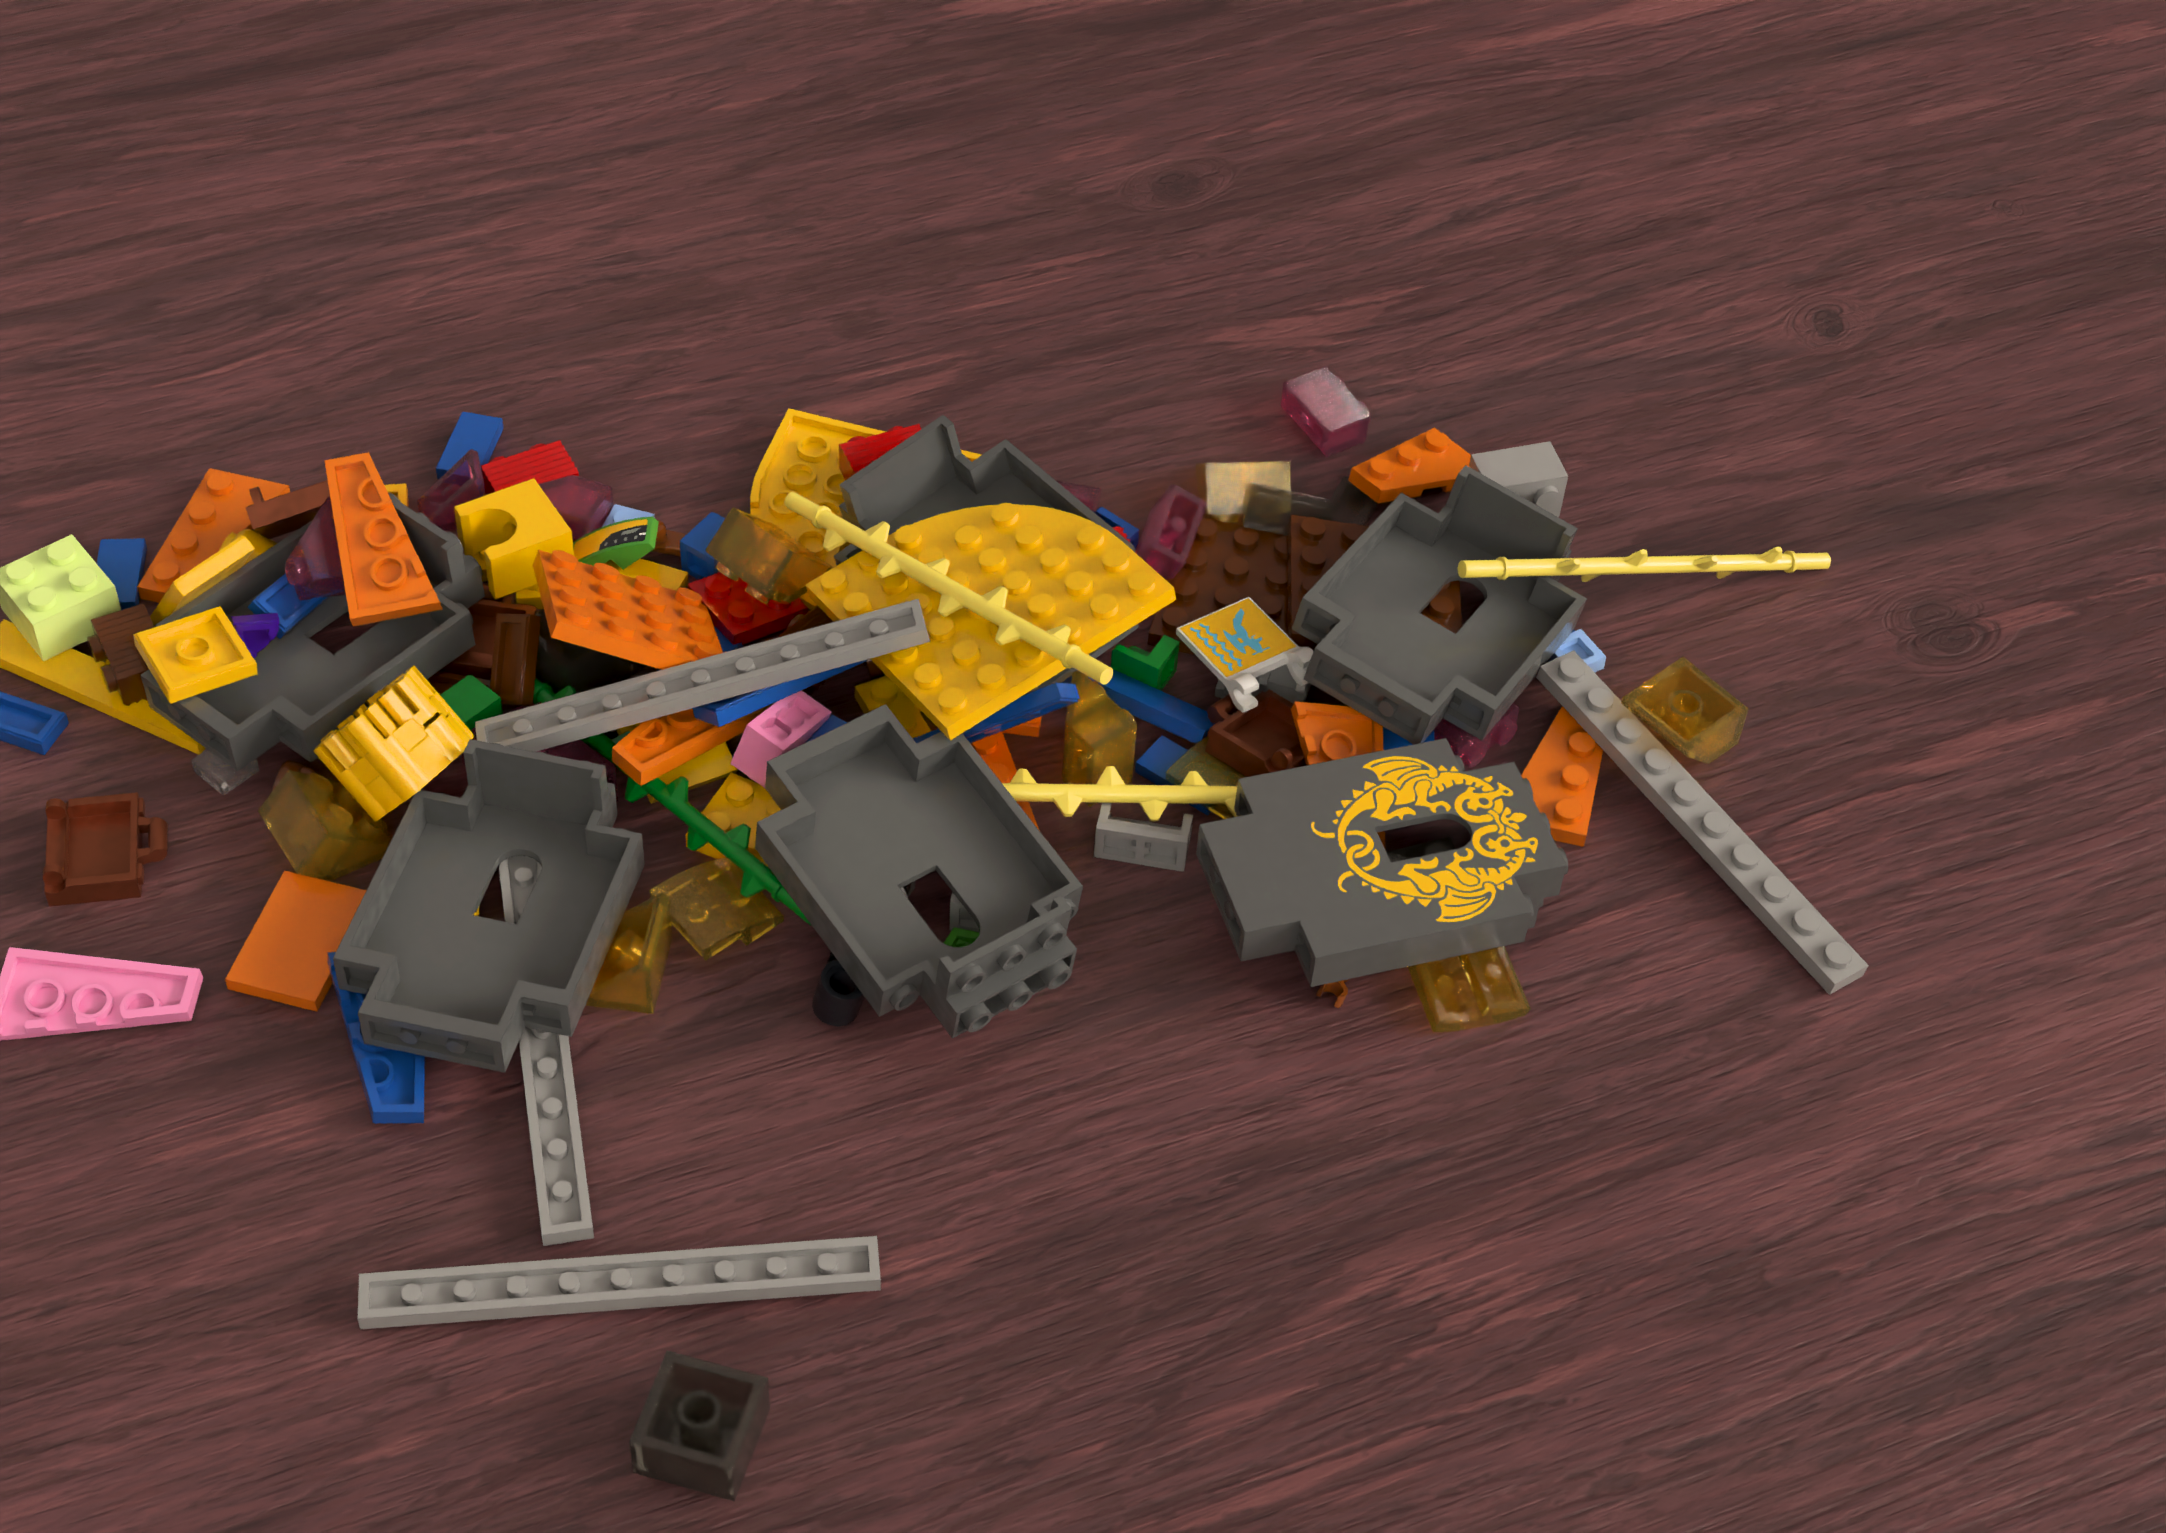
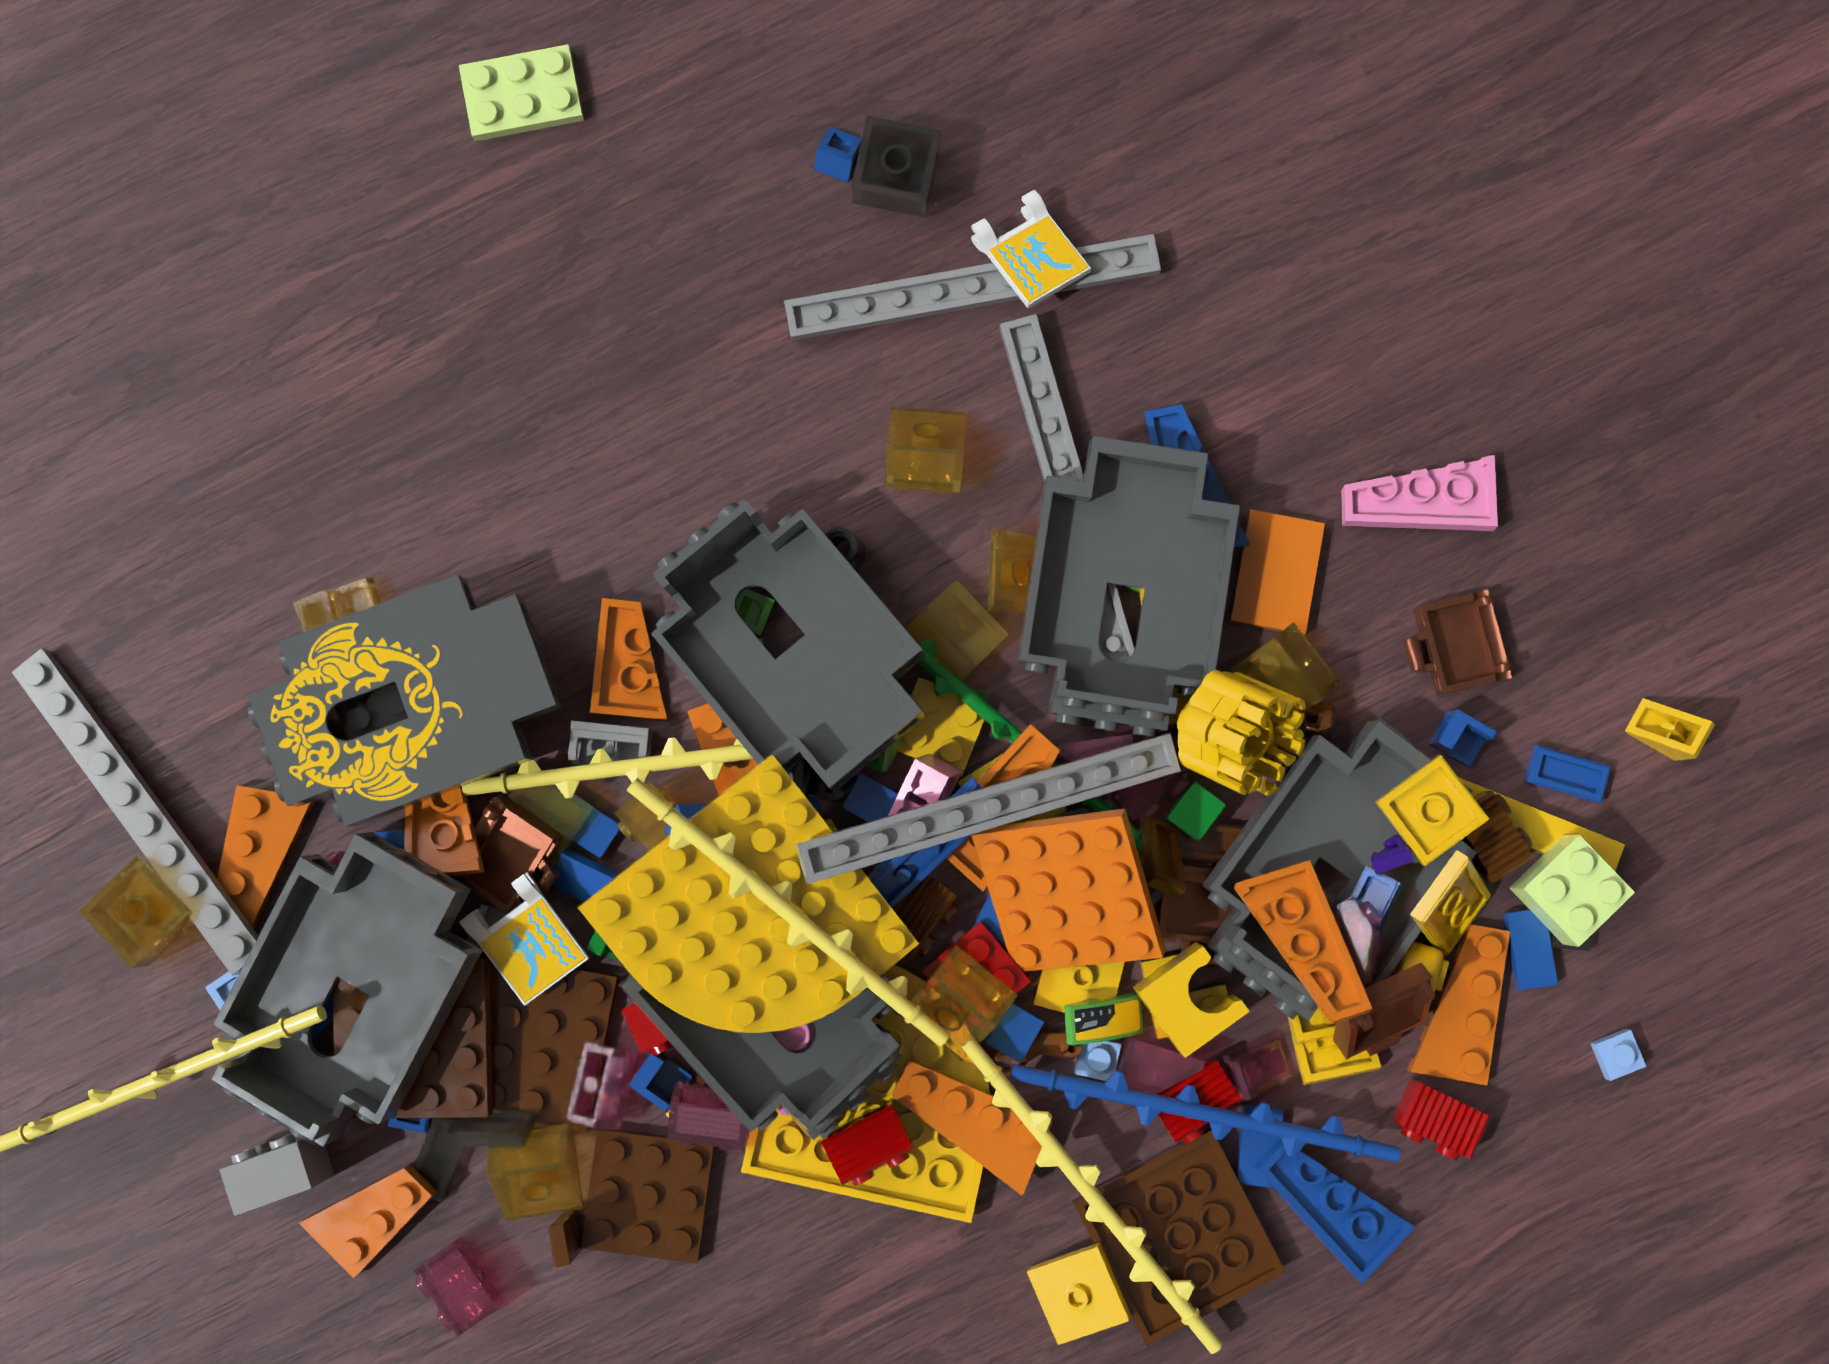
camera: 175 degrees right, 35 degrees up
(56, 484) = (1618, 1054): none -> light blue plate
(132, 761) = (1461, 737): none -> blue panel
(269, 444) = (1440, 1119): none -> red brick
(405, 386) = (1339, 1215): none -> blue wing
(530, 1297) = (1034, 255): none -> flag
(537, 458) = (1220, 1120): none -> blue plant
(575, 384) = (1195, 1230): none -> reddish brown plate
(660, 407) = (1099, 1210): none -> light yellow plant
(687, 351) = (1079, 1293): none -> yellow plate
(716, 1099) = (925, 450): none -> clear yellow slope
(760, 470) = (971, 1122): none -> orange wing
(778, 1479) = (837, 154): none -> blue slope
(1122, 910) = (624, 665): none -> orange wing
(1128, 460) = (647, 1196): none -> reddish brown plate
(1211, 421) = (565, 1238): none -> reddish brown tile

